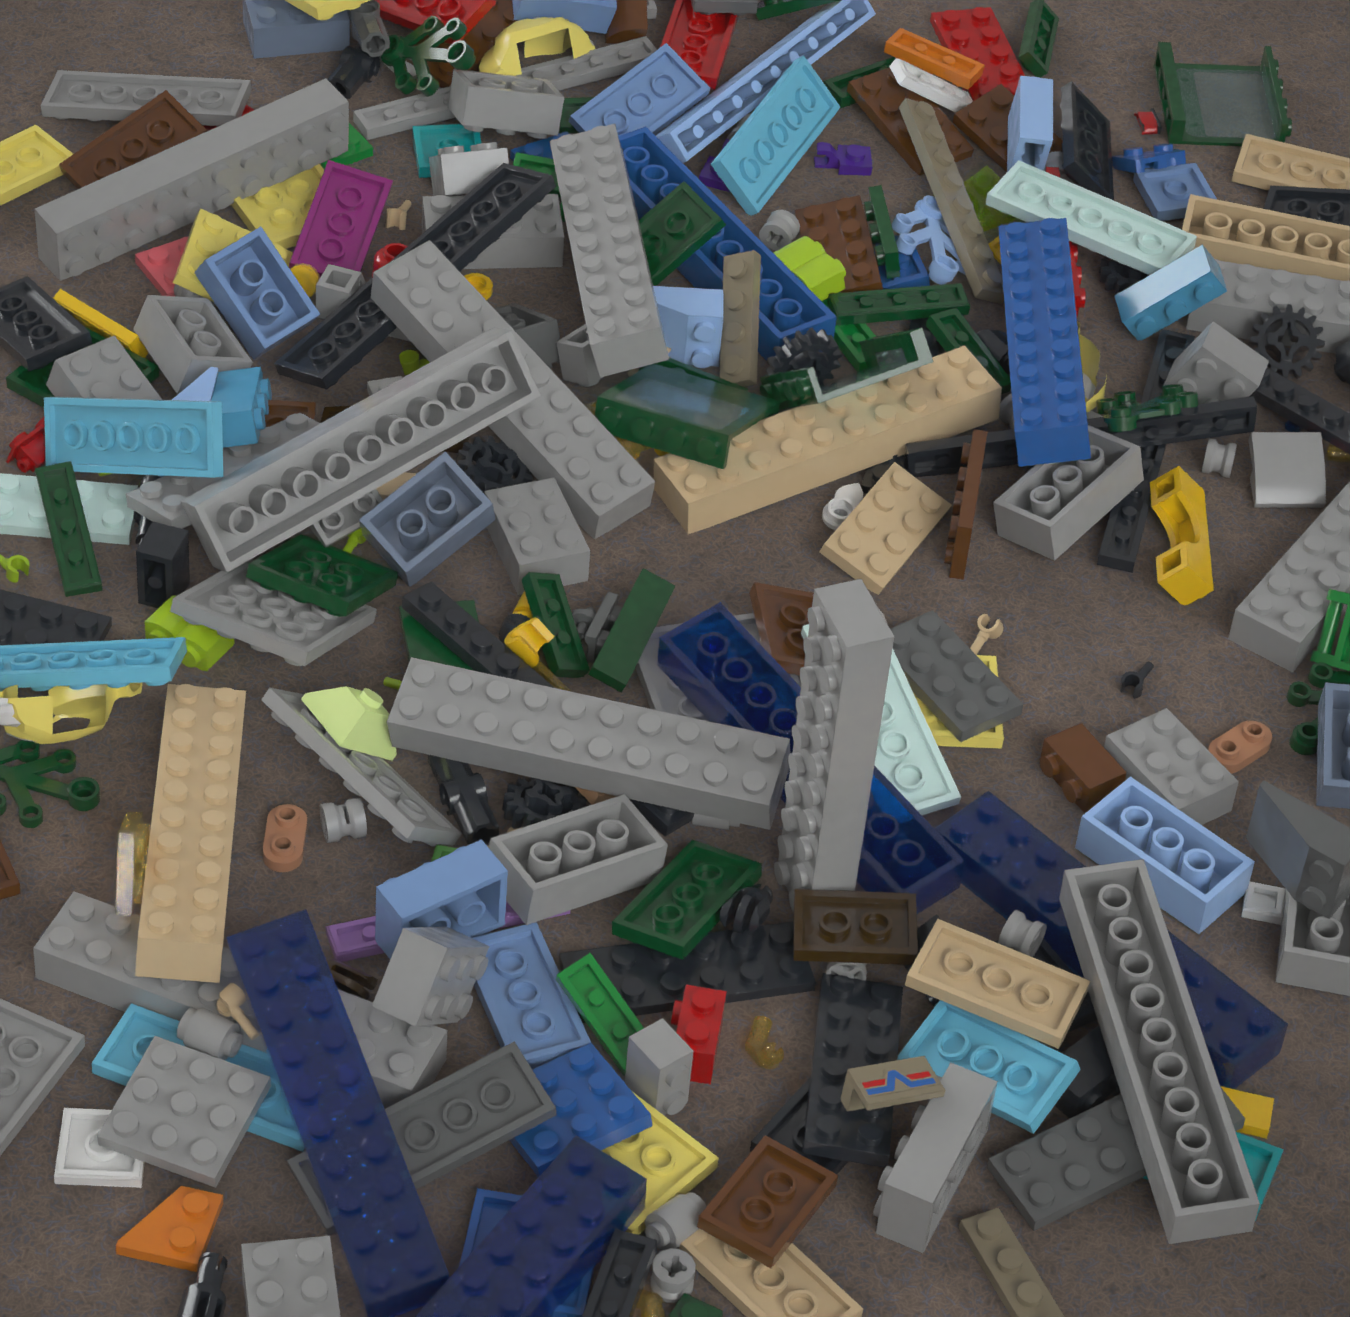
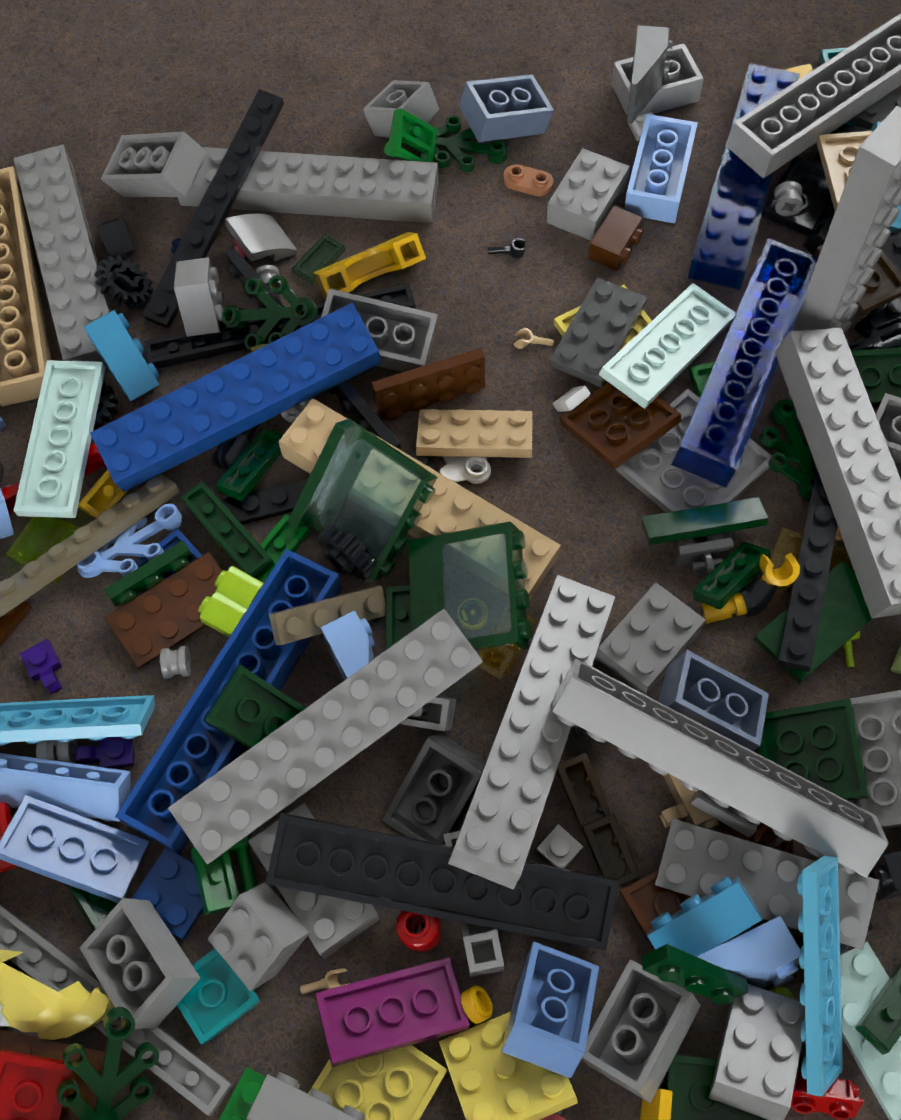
camera: 110 degrees left, 20 degrees up
(222, 336) = (694, 974): none -> dark green plate
(1233, 519) = (319, 256): none -> clear green tile

